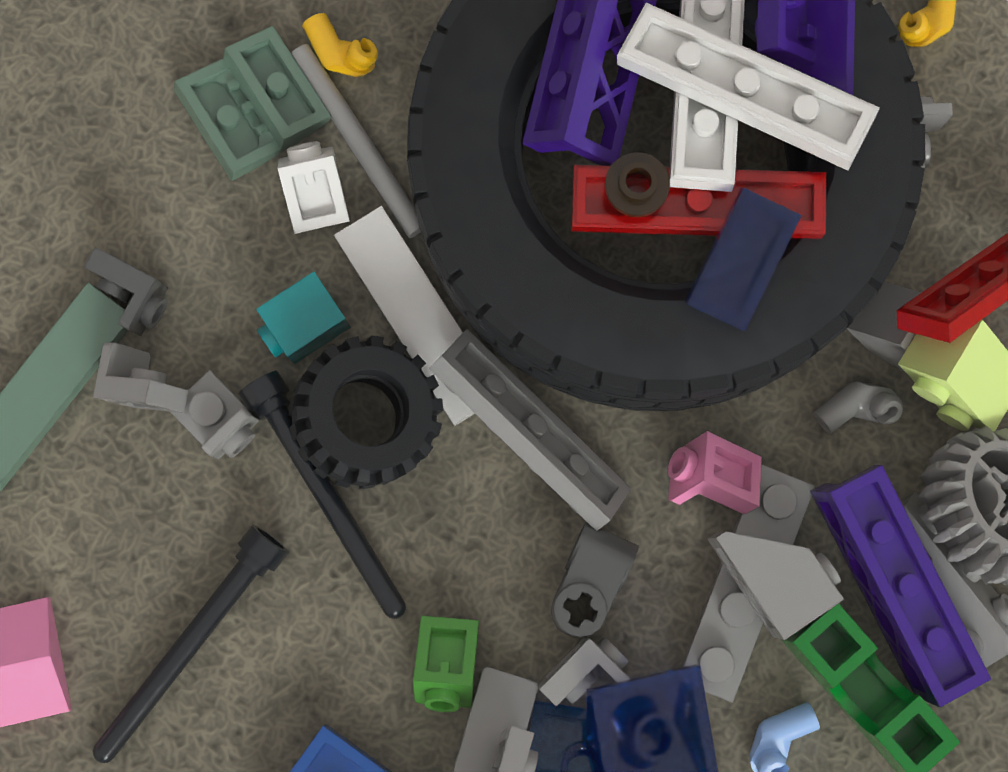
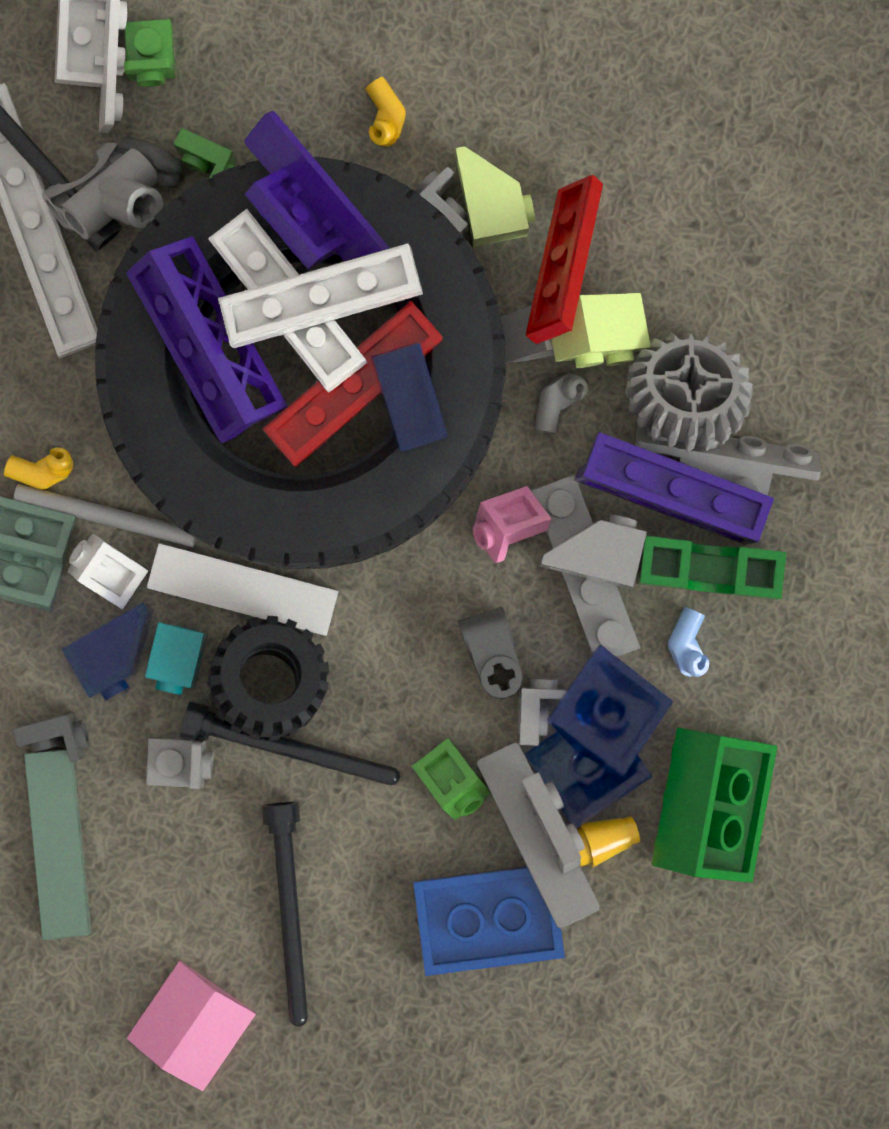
camera: 40 degrees left, 5 degrees up
(127, 381) = (106, 791): light grey bracket -> none
(248, 262) = (110, 653): none -> clear blue slope
(531, 429) = (375, 597): light grey plate -> none
(633, 203) = (321, 421): dark brown plate -> none
(964, 171) = (492, 200): none -> yellowish green slope

